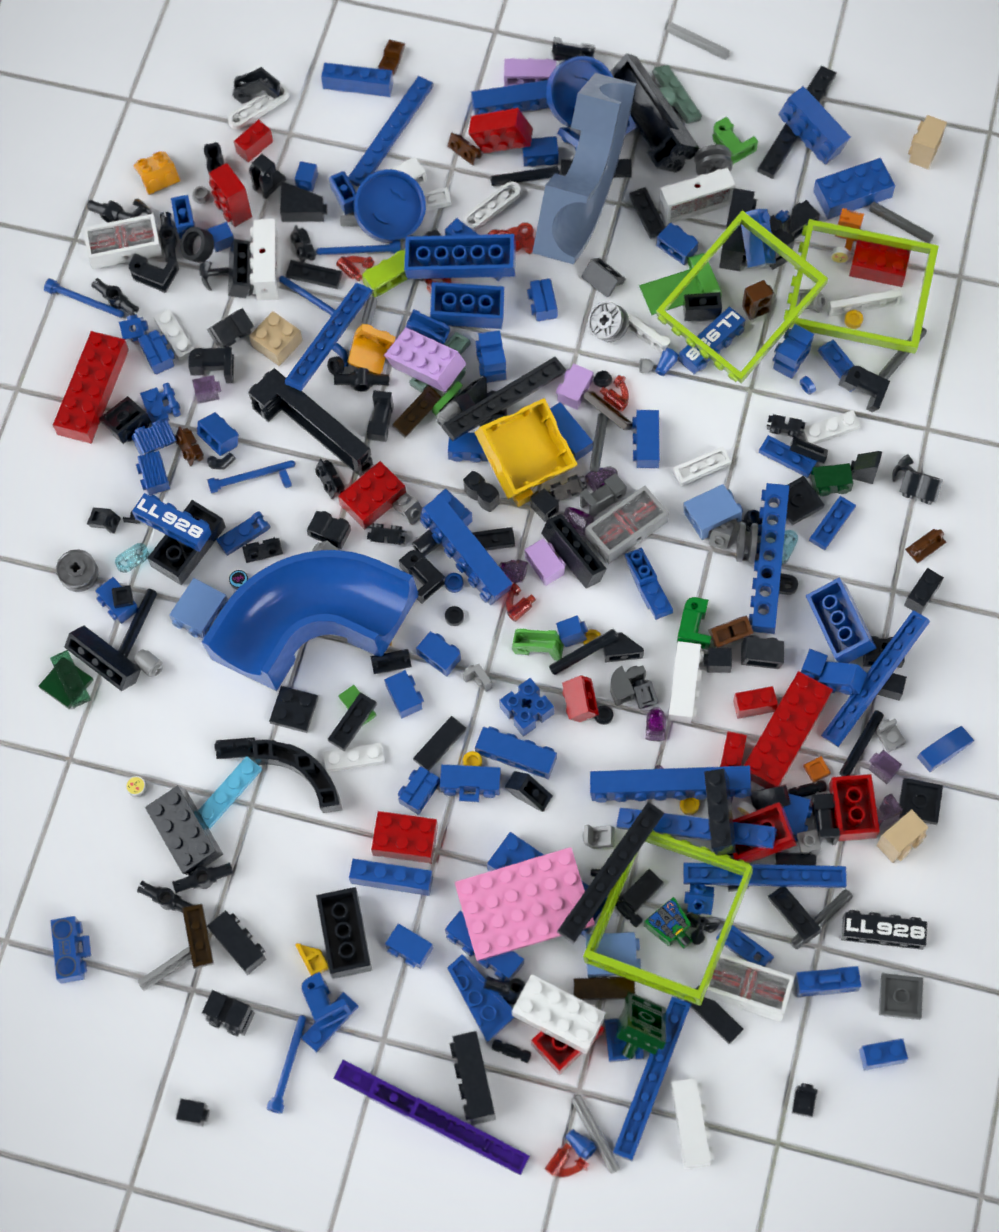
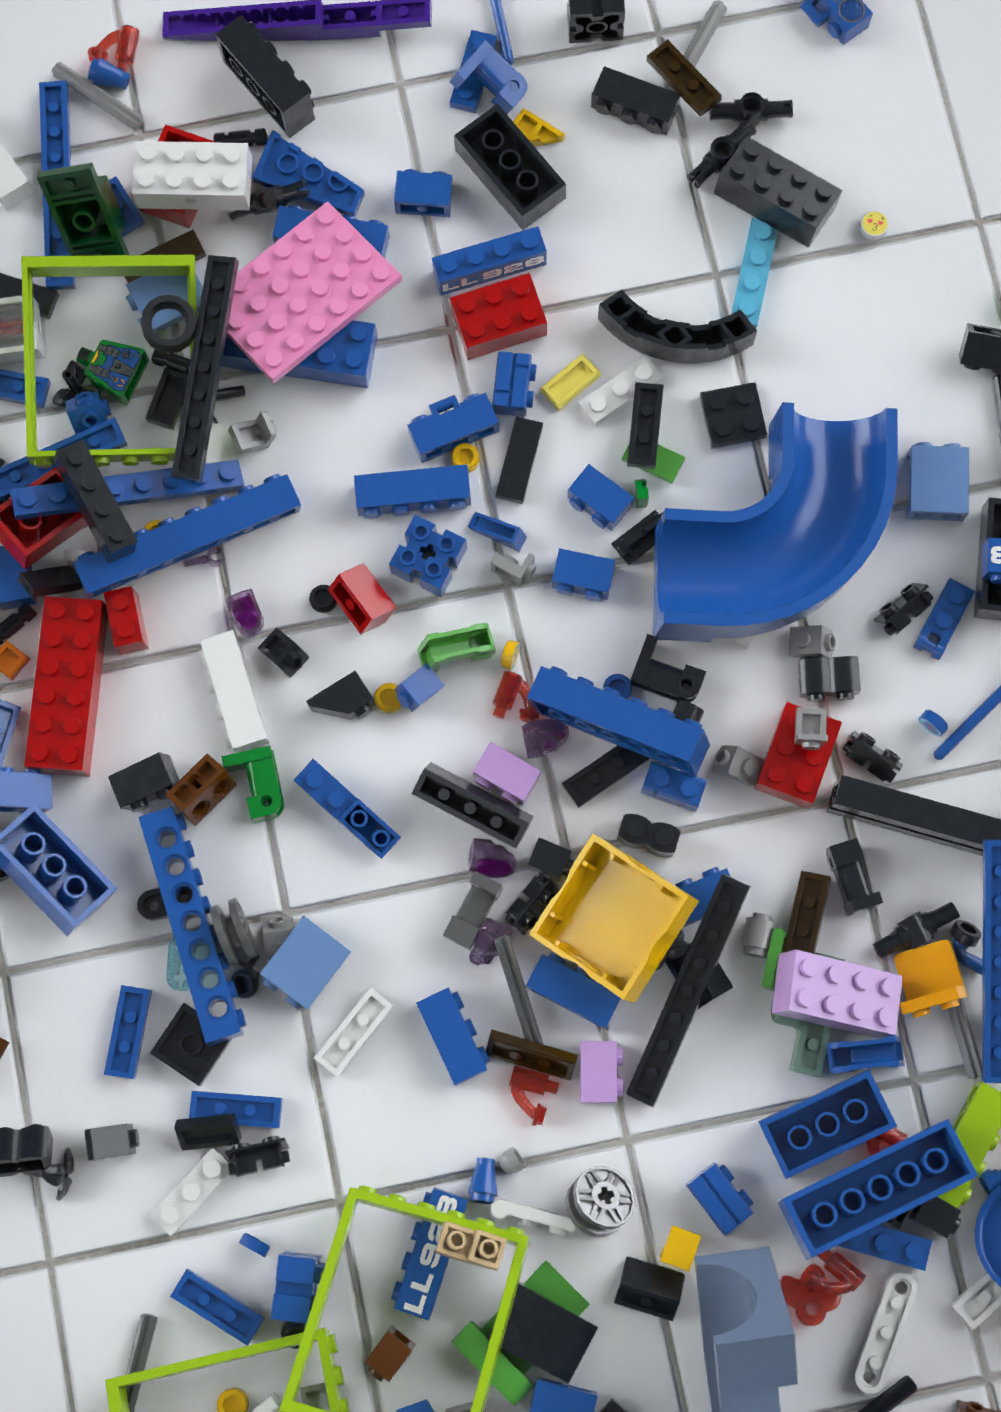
camera: 155 degrees right, 10 degrees up
(148, 663) = (957, 380): light grey brick -> none
(234, 748) = (780, 329): black hinge -> none
(237, 579) = (909, 551): tile -> none
(359, 493) = (810, 728): none -> light grey bracket
(378, 534) = (760, 709): black hinge -> none
(378, 684) = (641, 493): none -> green tile
(381, 778) = (570, 382): none -> light yellow tile
(454, 616) = (592, 641): black tile -> none
(472, 394) = (738, 979): black slope -> none
(476, 707) = (498, 531): none -> blue piece
(491, 356) = (744, 1054): blue brick -> none
(507, 627) = (510, 654): none -> yellow tile
(528, 790) = (372, 449): black slope -> none
(577, 284) = (680, 1248): none -> yellow panel
(583, 651) = (387, 664): black axle -> none
(602, 379) = (564, 1105): black plate -> none
(621, 682) = (319, 649): dark grey brick -> none
(624, 925) = (168, 302): none -> black tyre
(626, 524) = (417, 880): brick -> none
(666, 276) = (546, 1334): none -> black slope
(689, 317) = (471, 1246): none -> tan slope
(702, 306) = (470, 1302): black brick -> none
(718, 660) = (202, 742): black brick -> none
(755, 702) = (126, 707): red brick -> none
(814, 664) = (68, 798): blue brick -> none
(832, 479) = (155, 1100): dark green brick -> none
(866, 382) = (148, 1286): black piece -> none

